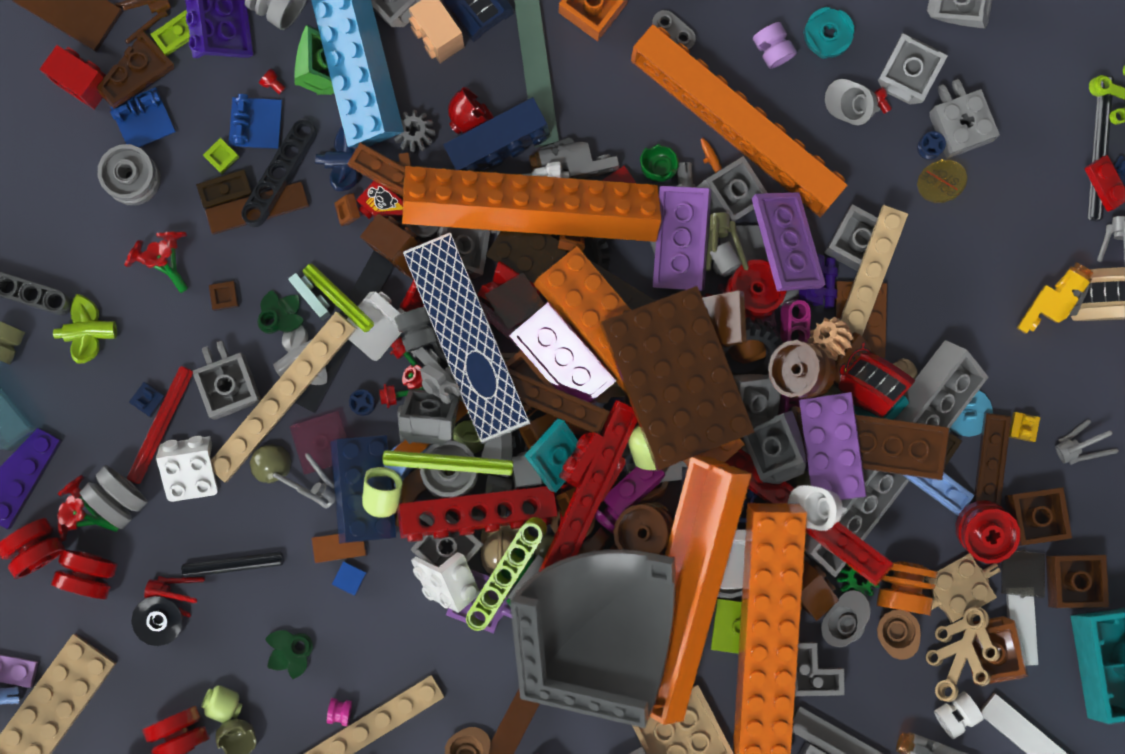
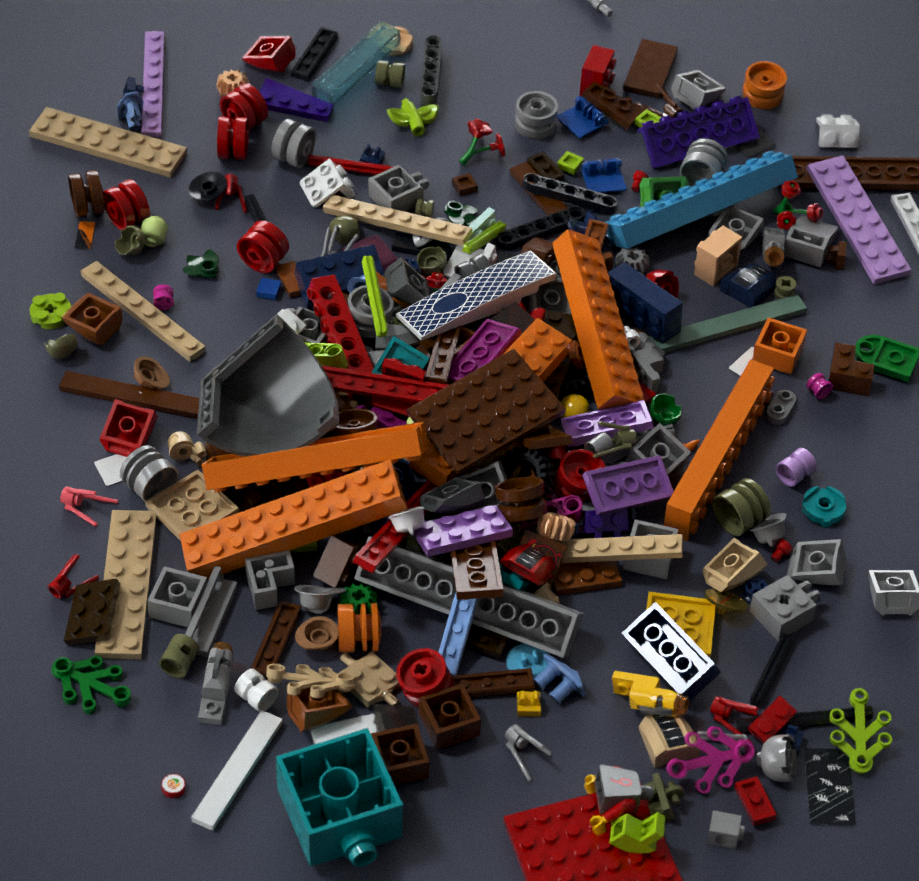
camera: 80 degrees right, 35 degrees down
(72, 511) = (266, 125): red plant -> none
(262, 357) = (425, 208): none -> olive wheel
(297, 578) = (262, 246): none -> red wheel
(316, 213) = (531, 228): none -> black beam
(347, 210) = (551, 237): dark orange tile -> none
(356, 370) = (432, 260): none -> olive hair
(381, 502) = (335, 265): yellowish green helmet -> none
(435, 383) = (434, 284): light grey plate -> none
(588, 733) = (182, 447): none -> tan piece
(593, 50) = (740, 364): none -> white sticker
(628, 264) = (575, 405): none -> yellow hair
(828, 126) = (741, 507): none -> olive wheel
(885, 678) = (276, 636): none -> reddish brown tile
(903, 159) = (733, 566): none -> tan slope
(955, 232) = (691, 614): none -> yellow plate
(1009, 261) = (671, 652): none -> brick
(1009, 376) = (570, 677): none -> medium blue connector
(1034, 163) = (771, 670): none -> black axle
(1075, 229) = (723, 708): none -> red plant

